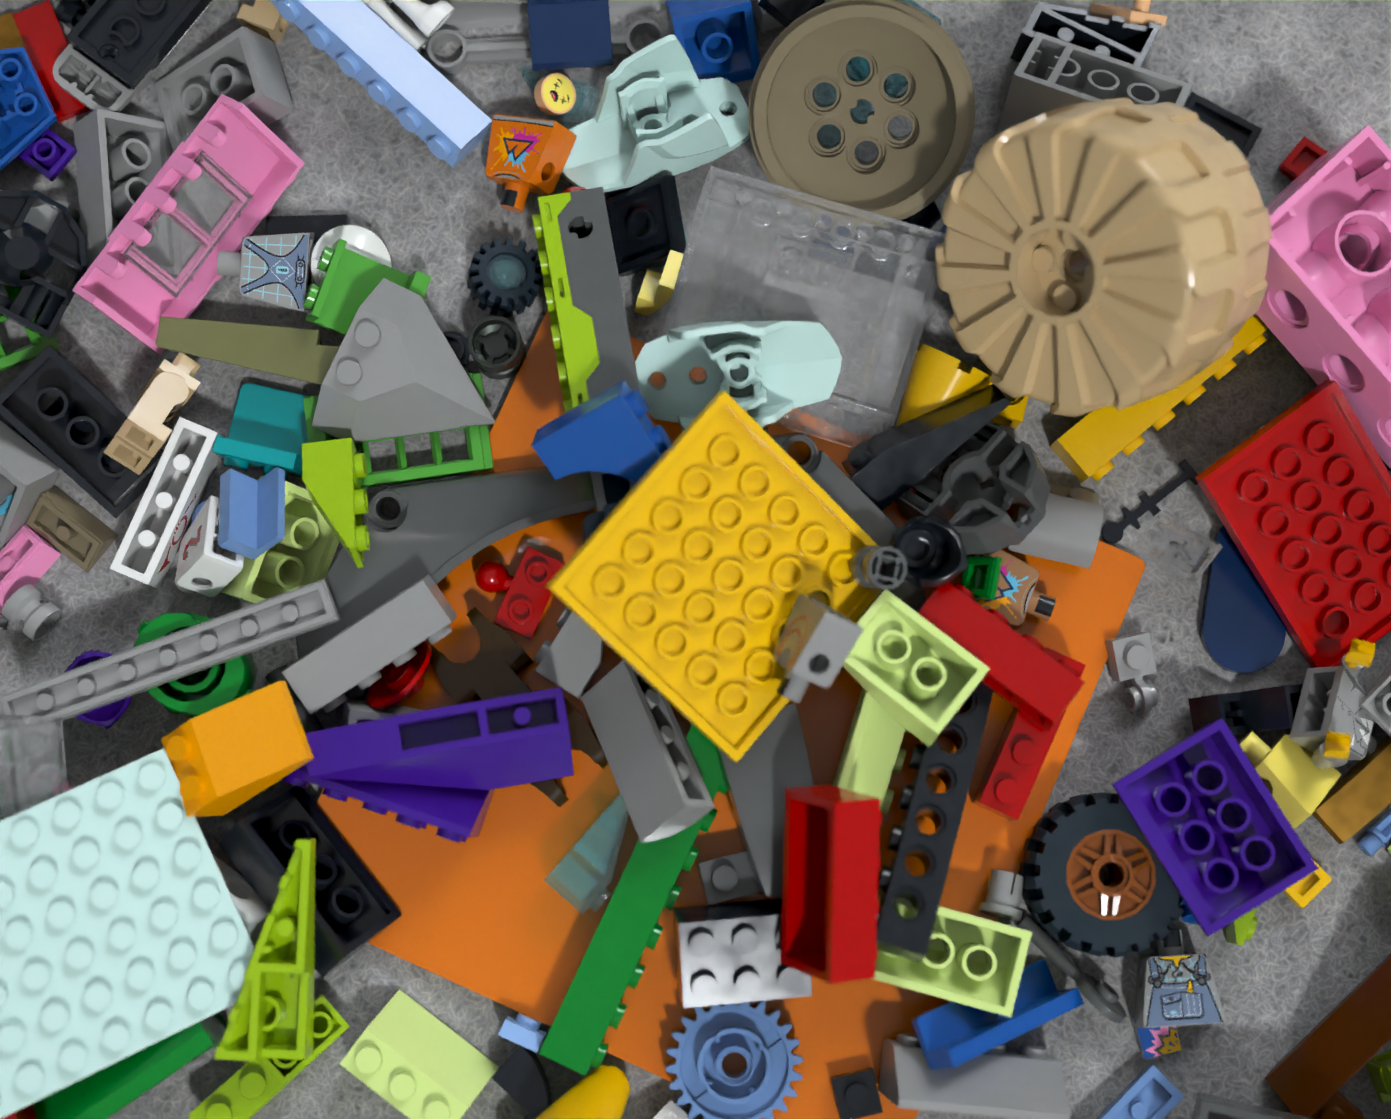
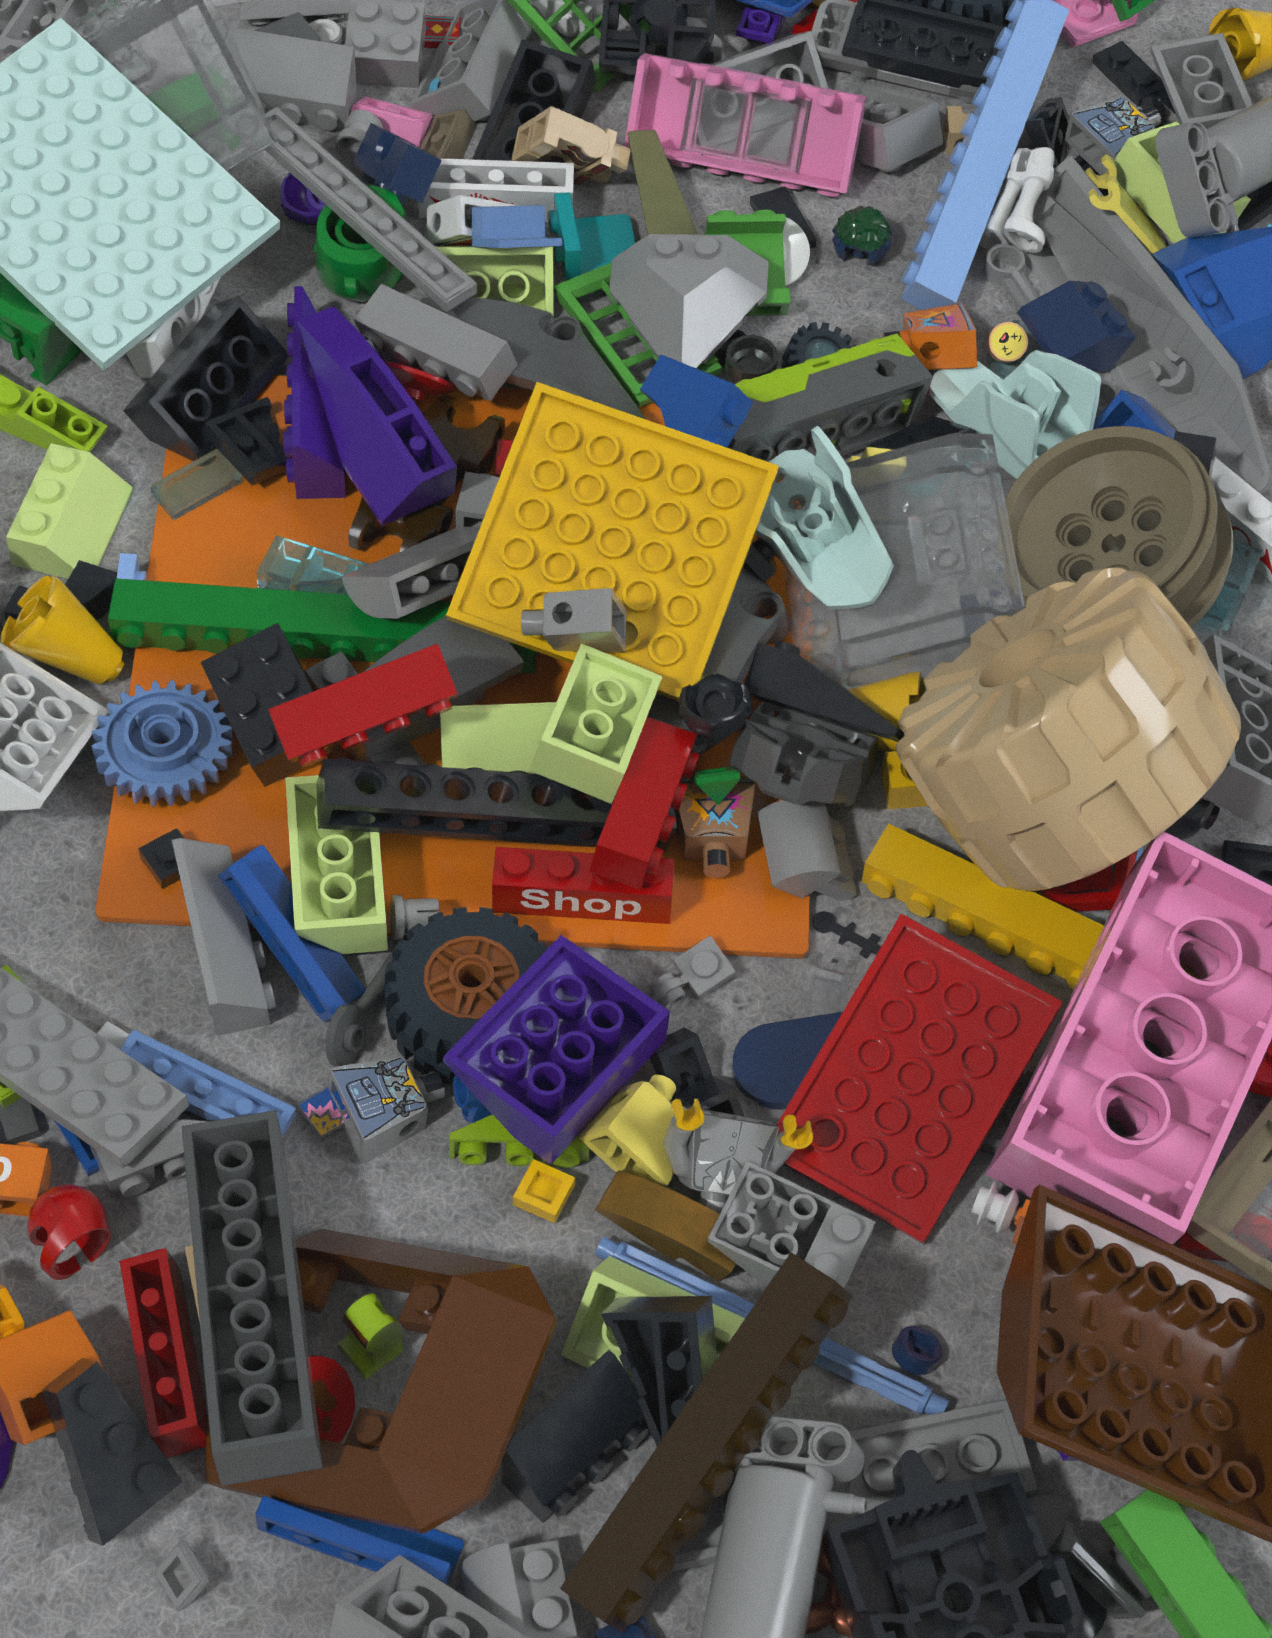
camera: 65 degrees right, 25 degrees down
(127, 595) = (395, 164): none -> dark blue arch
(237, 750) = (296, 271): light orange slope -> none
(272, 268) = (739, 186): torso -> none
(277, 996) = (96, 367): lime wedge -> none
(333, 480) = (559, 281): lime slope -> none
(364, 169) = (863, 232): none -> dark green piece
(401, 861) = (249, 440): none -> black wing
(428, 929) = (195, 484): none -> clear light blue tile
(869, 563) = (677, 671): dark grey wheel -> none

